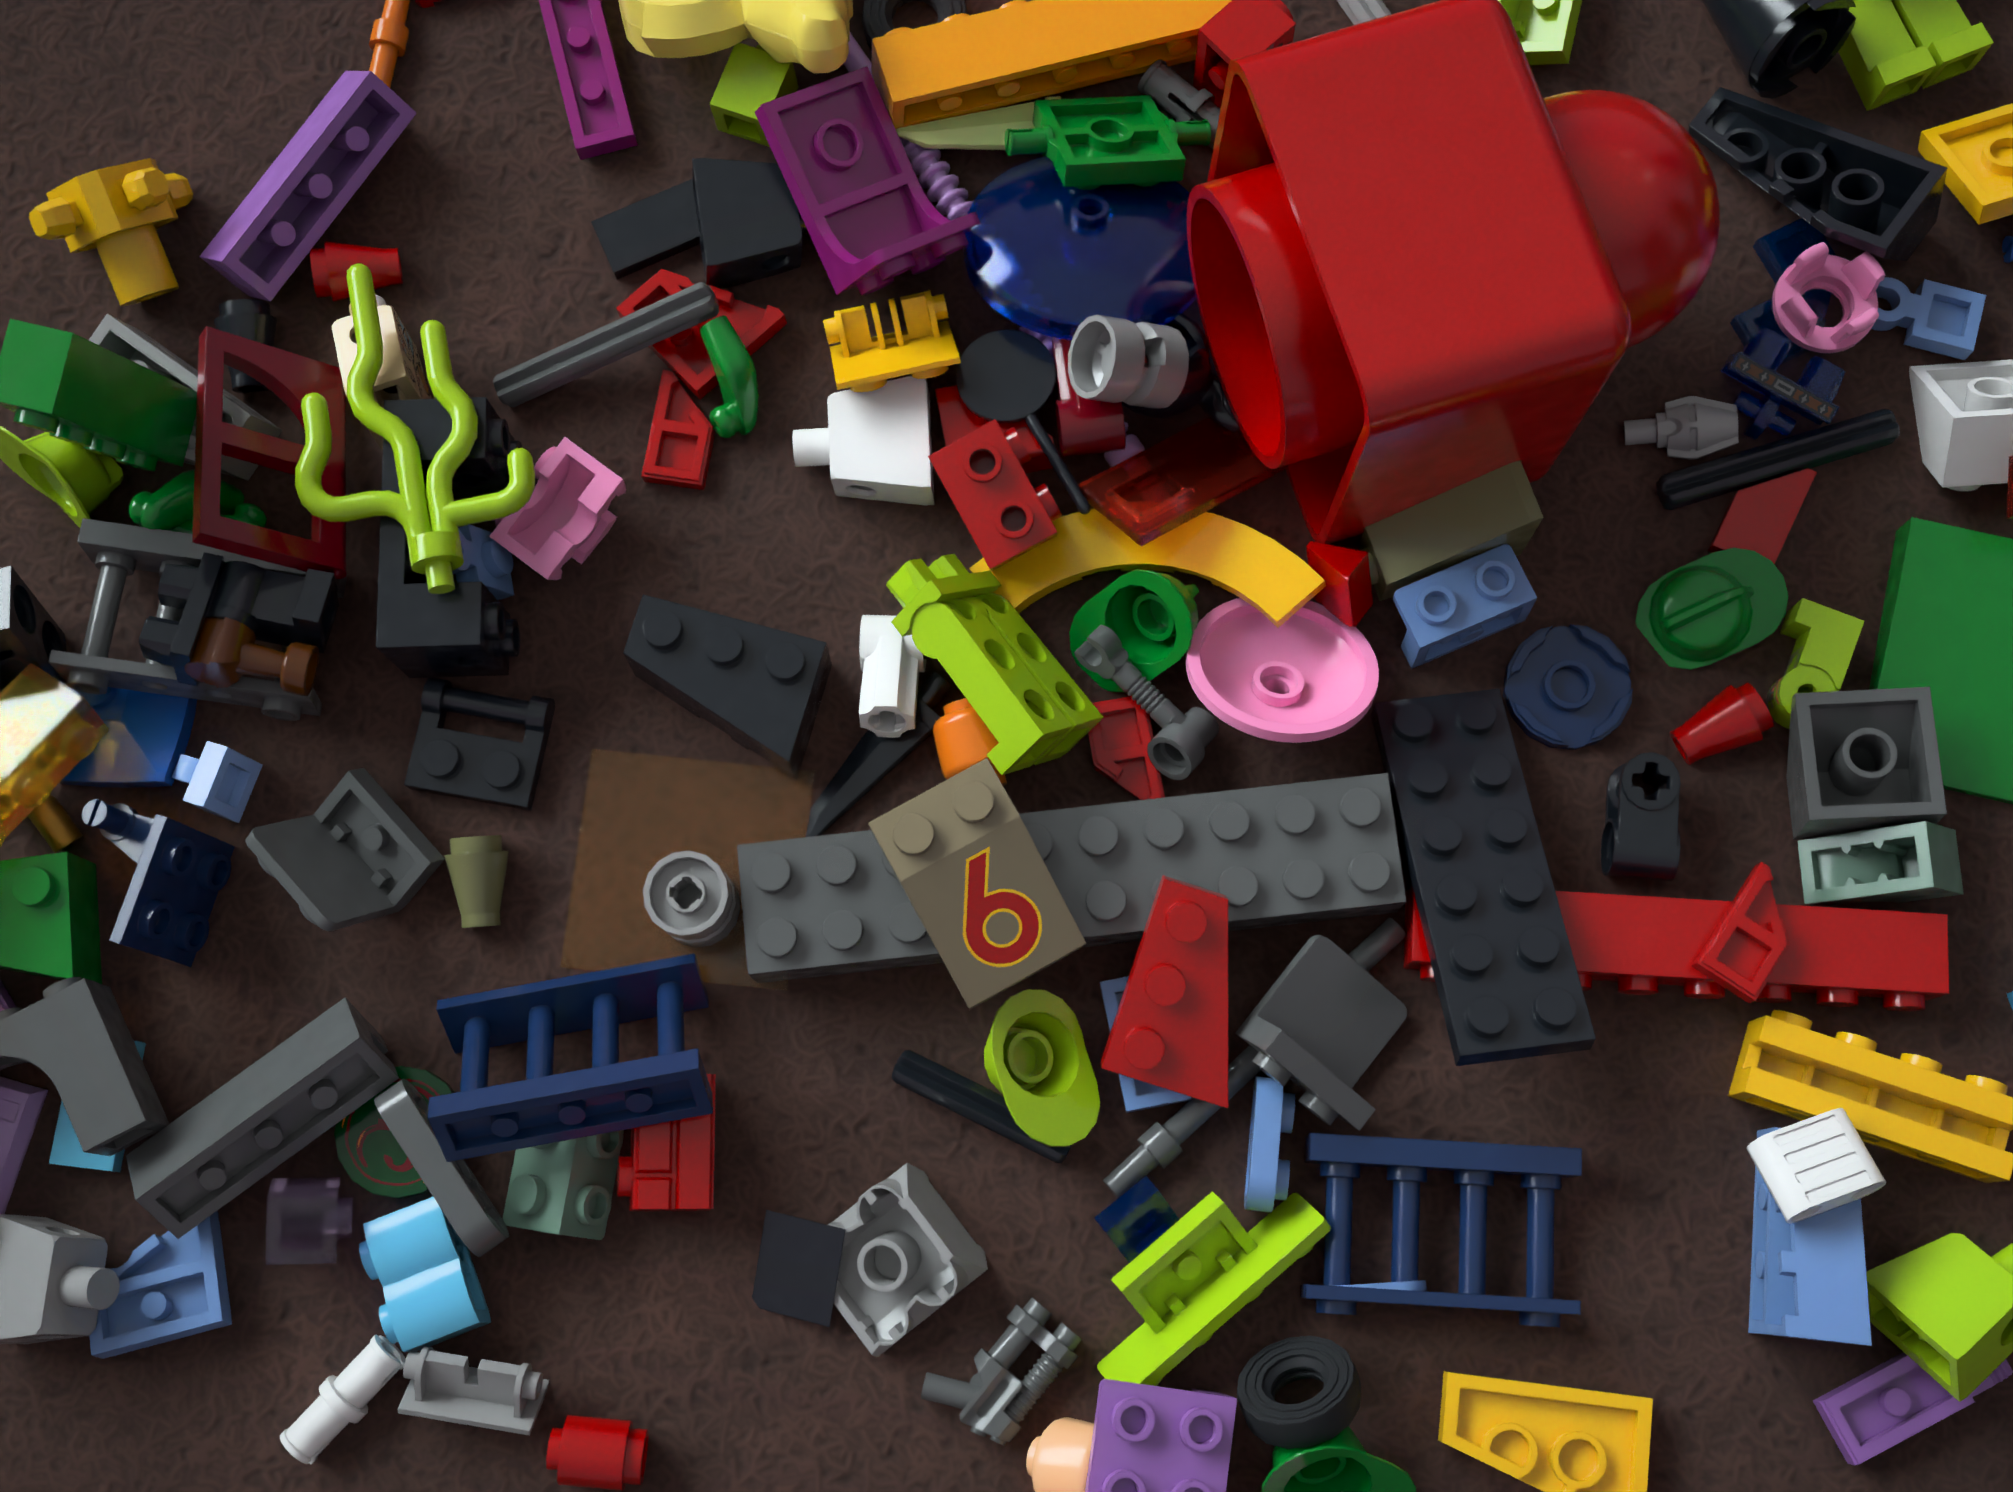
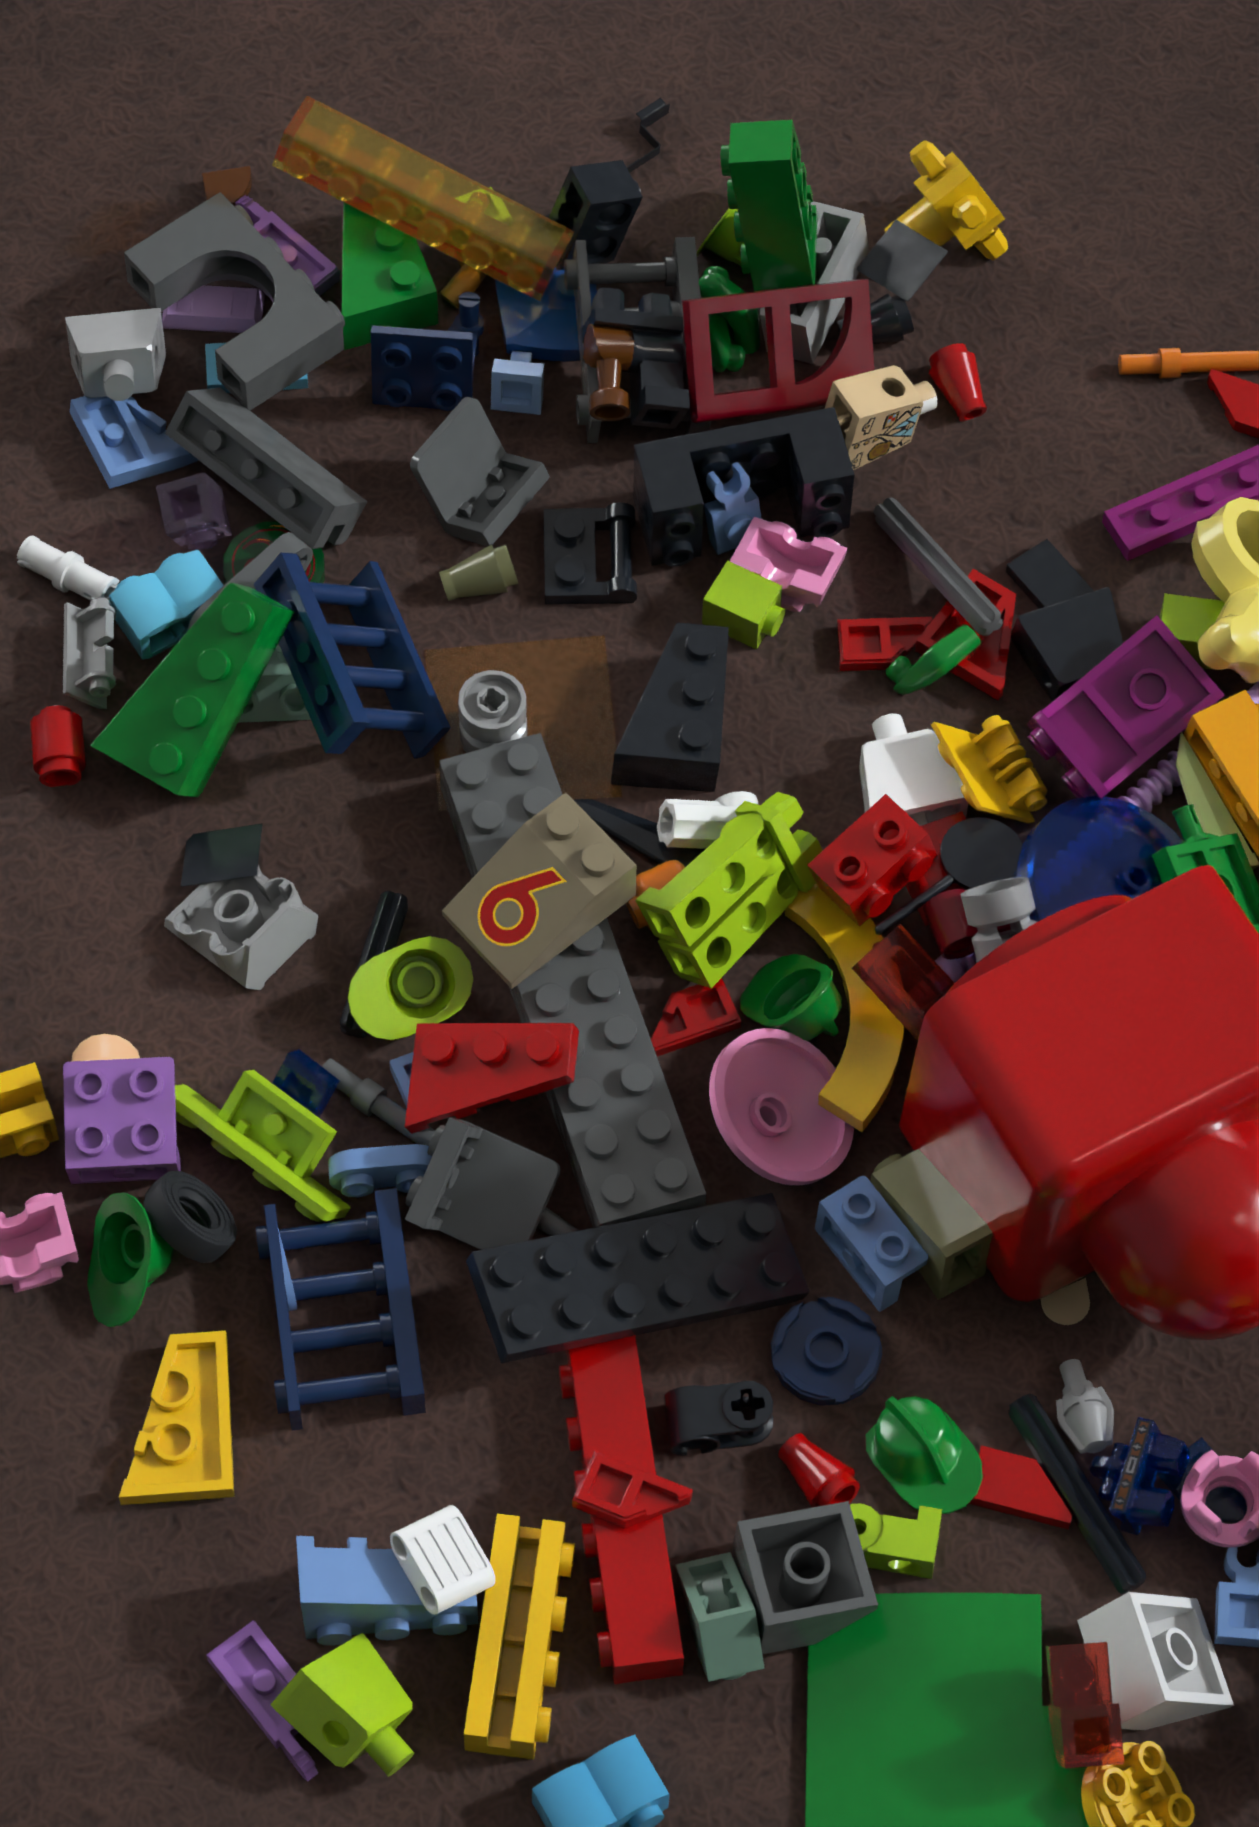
camera: 70 degrees right, 15 degrees down
(177, 289) = (902, 260): none -> black sticker
(308, 184) = (1018, 330): medium lavender brick -> none
(427, 513) = (757, 448): lime plant -> none
(598, 1269) = (198, 693): none -> green wedge
(601, 575) = (744, 604): none -> lime brick
(671, 1164) = (288, 750): red brick -> none
(995, 1397) = (150, 1013): dark grey piece -> none
(1183, 737) = (700, 1046): dark grey brick -> none
(1346, 580) = (869, 1146): red slope -> none

